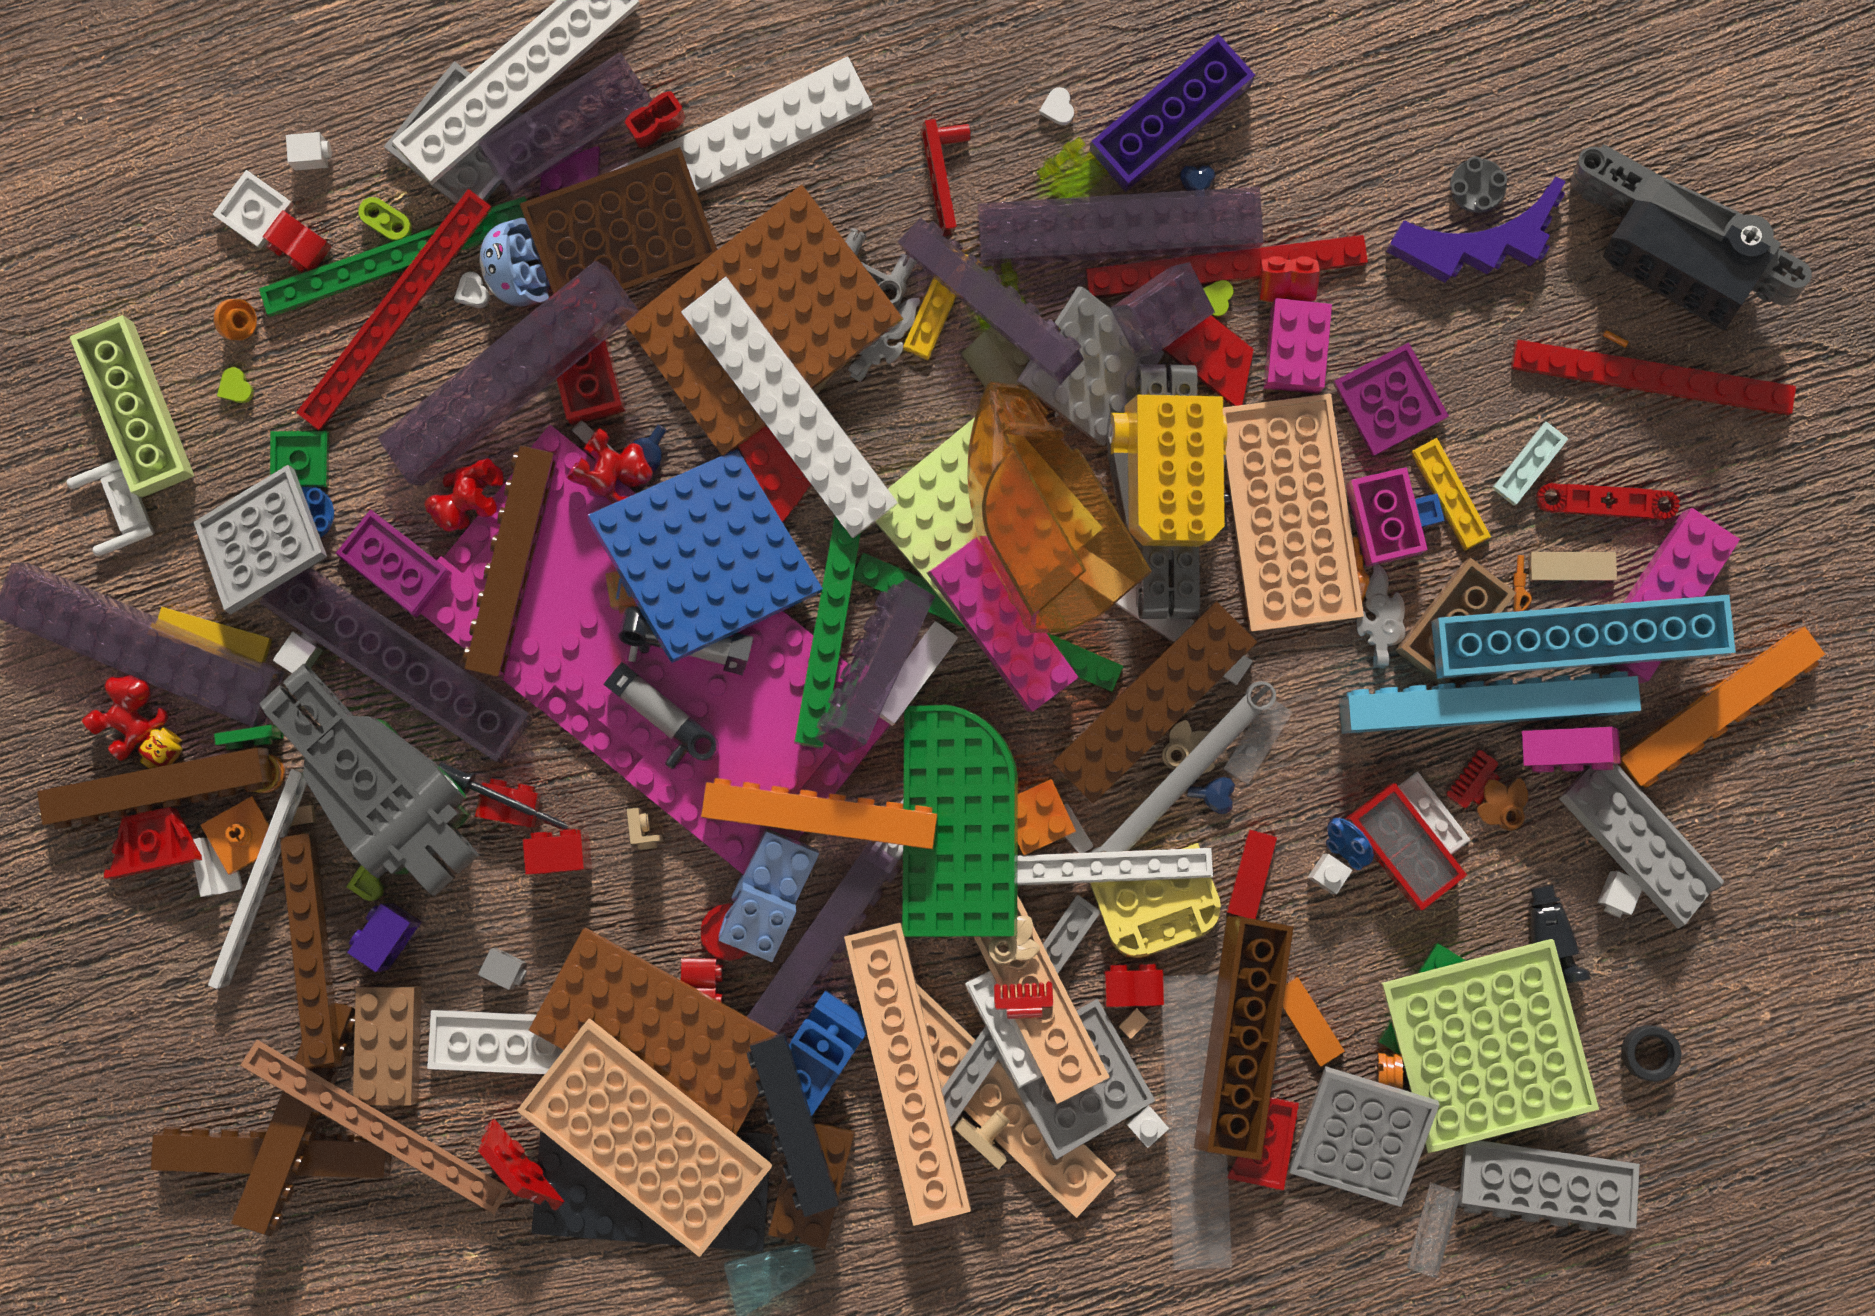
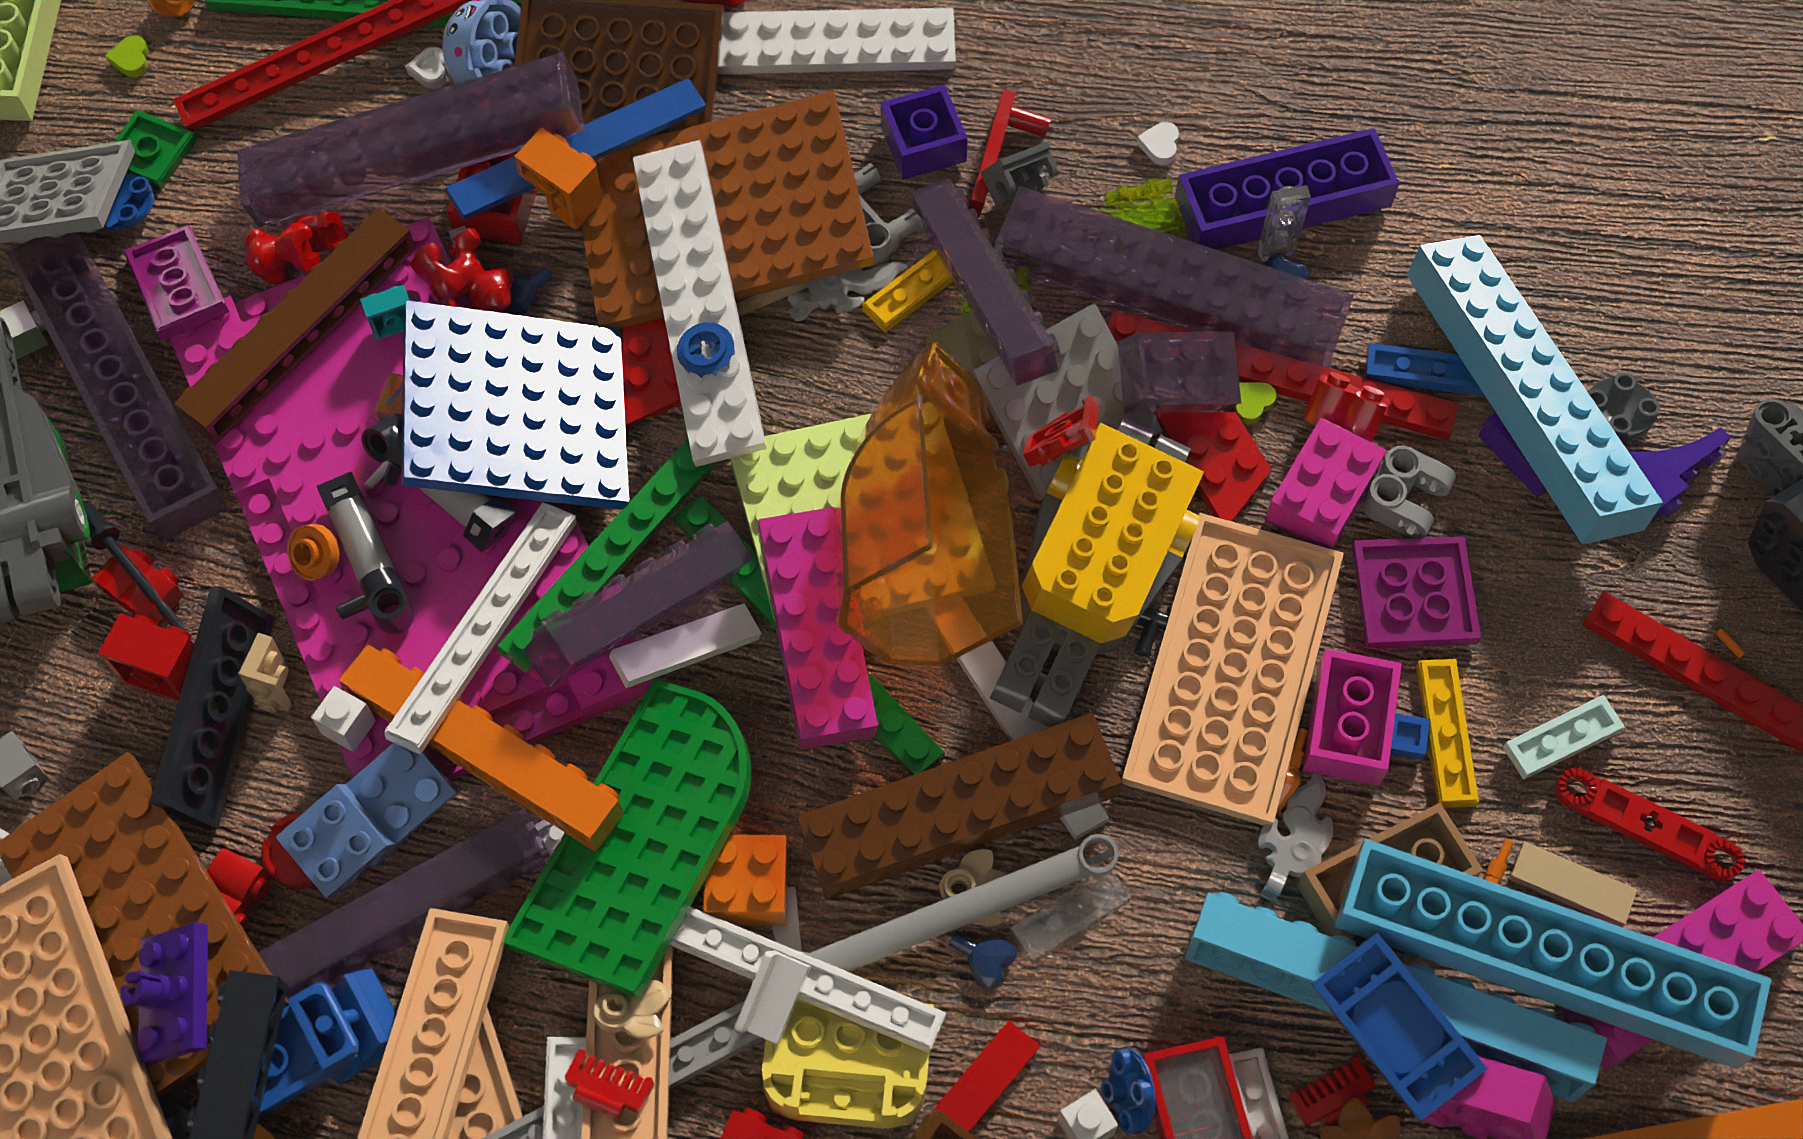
camera: 25 degrees right, 20 degrees down
(572, 523) = (386, 311): none -> teal piece
(617, 868) = (210, 712): none -> black plate
(624, 341) = (598, 140): none -> blue tile
(626, 731) = (313, 552): none -> orange plate
(639, 356) = (563, 175): none -> orange brick
(717, 839) = (343, 719): none -> white brick
(717, 1075) = (171, 993): none -> dark purple plate
(776, 732) = (480, 629): none -> white tile
(808, 451) = (690, 349): none -> blue gear
(881, 183) = (923, 132): none -> dark purple brick
(969, 188) = (1018, 170): none -> dark grey hinge
(1098, 891) = (772, 996): none -> white panel
(1109, 405) = (1062, 434): none -> red wing
(1185, 149) = (1283, 221): none -> clear plate
(1339, 214) = (1419, 369): none -> blue plate
(1348, 323) = (1420, 472): none -> light grey piece
(1413, 207) = (1533, 390): none -> medium azure brick
(1507, 733) = (1399, 1027): none -> blue slope

